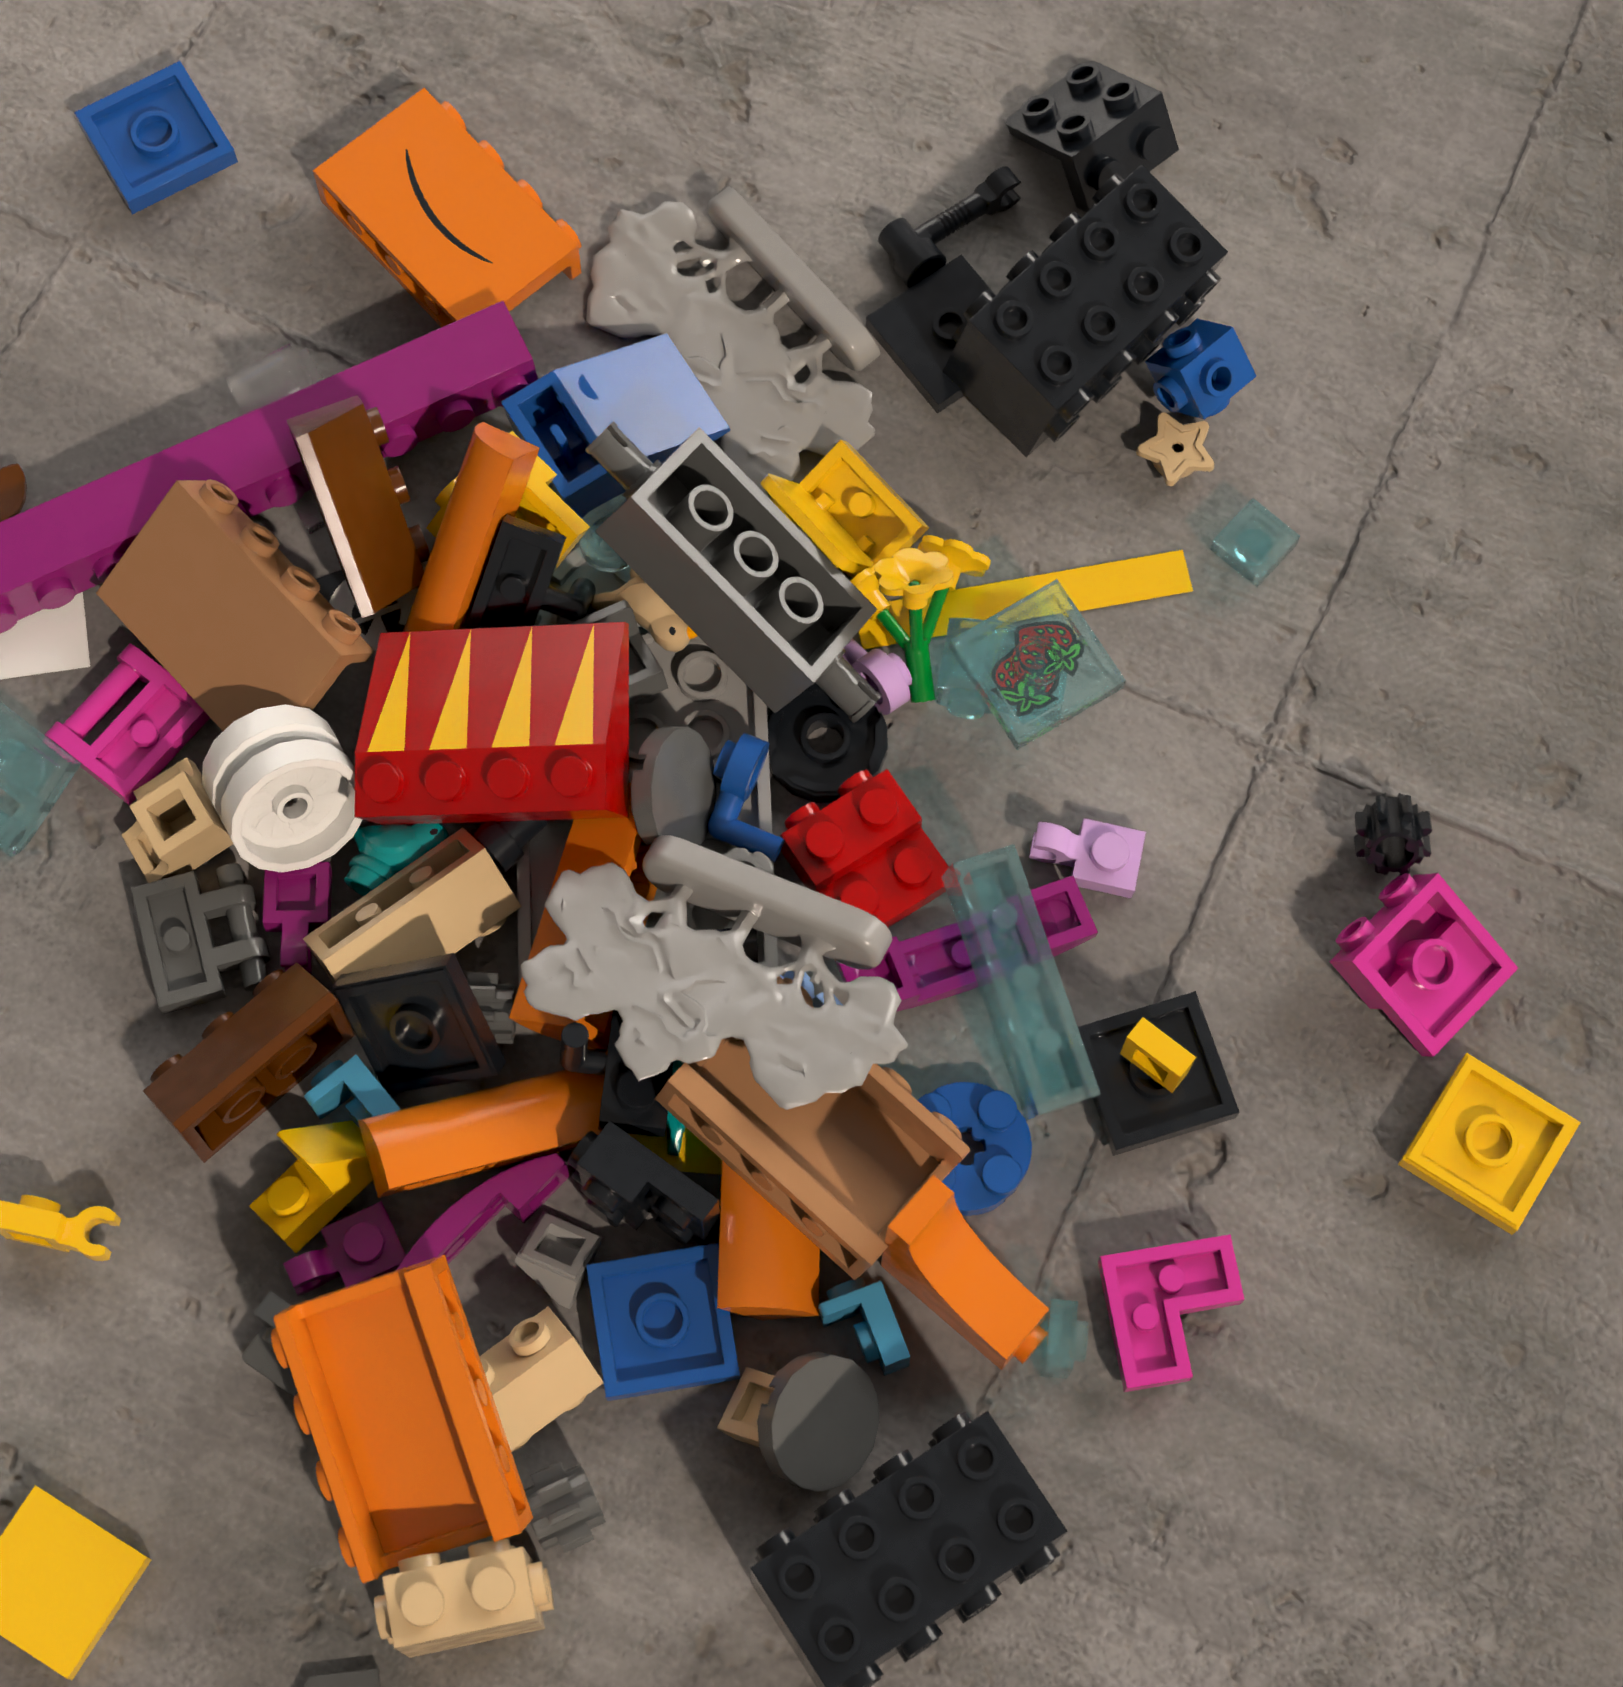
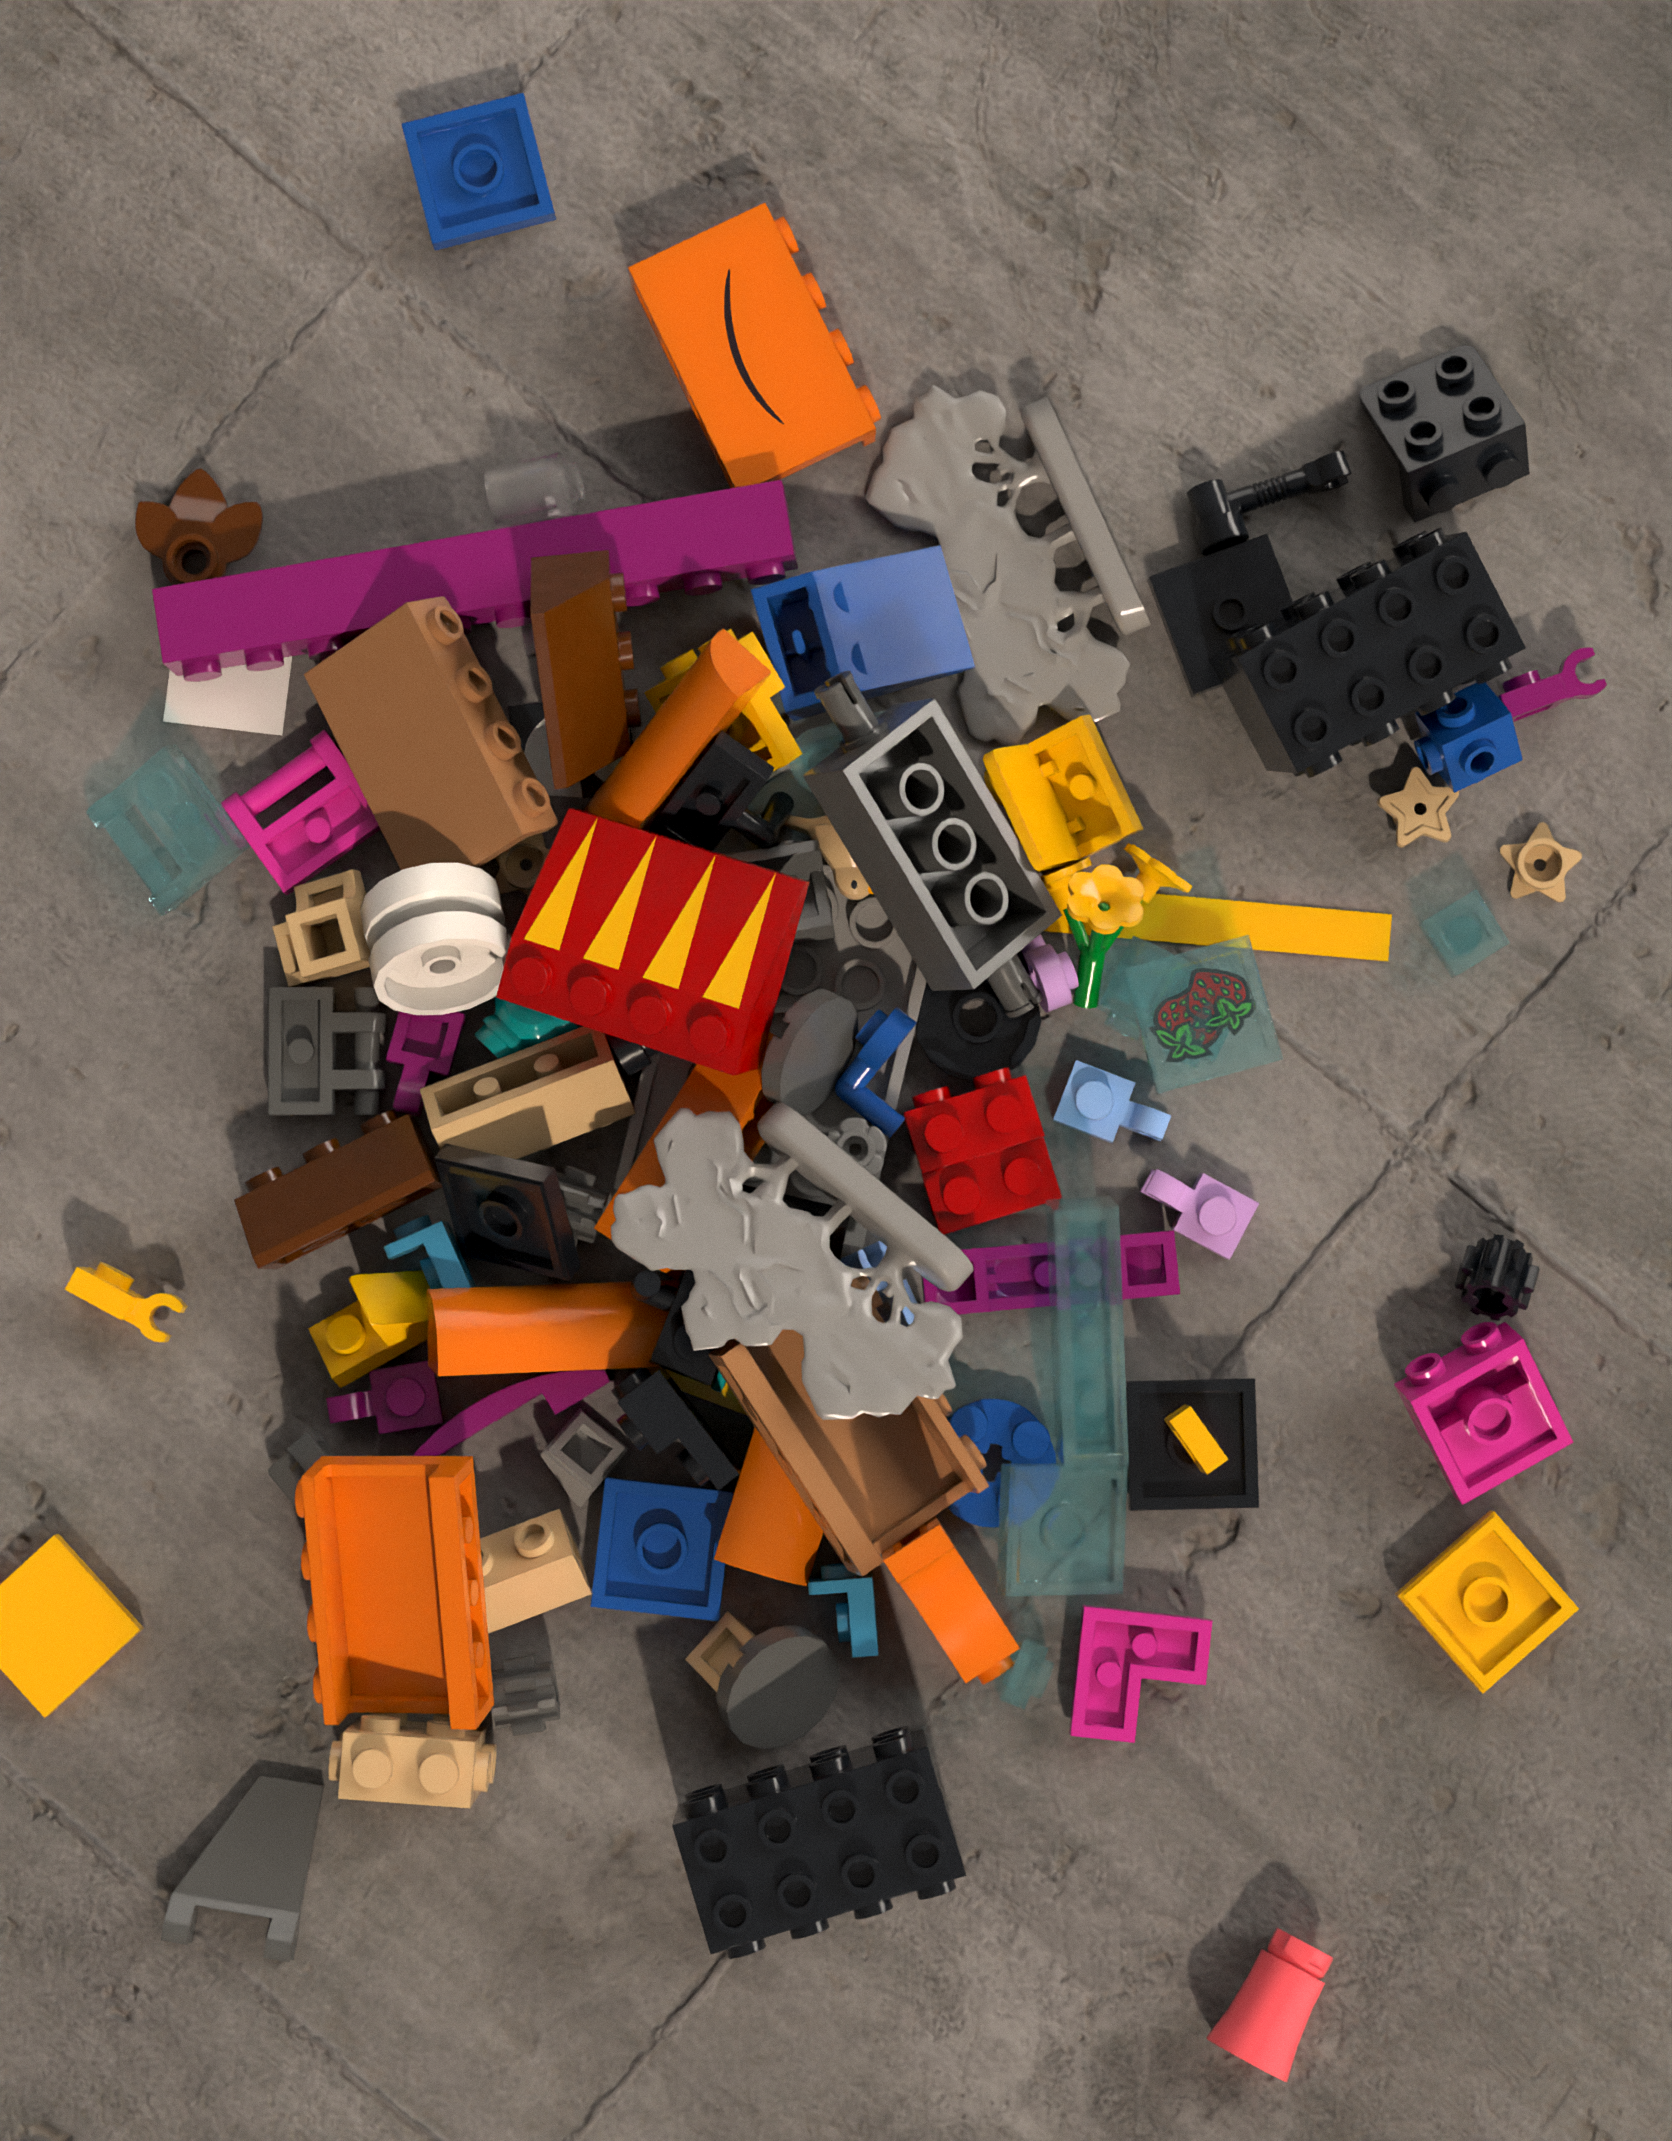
camera: 15 degrees right, 15 degrees up
(339, 711) = (510, 875): none -> tan plate
(965, 786) = (1100, 1103): none -> light blue plate
(1054, 1186) = (1061, 1530): none -> clear light blue tile
(1258, 316) = (1531, 695): none -> magenta plate
(1305, 455) = (1557, 862): none -> tan plate
(1418, 1605) = (1273, 2005): none -> coral plant

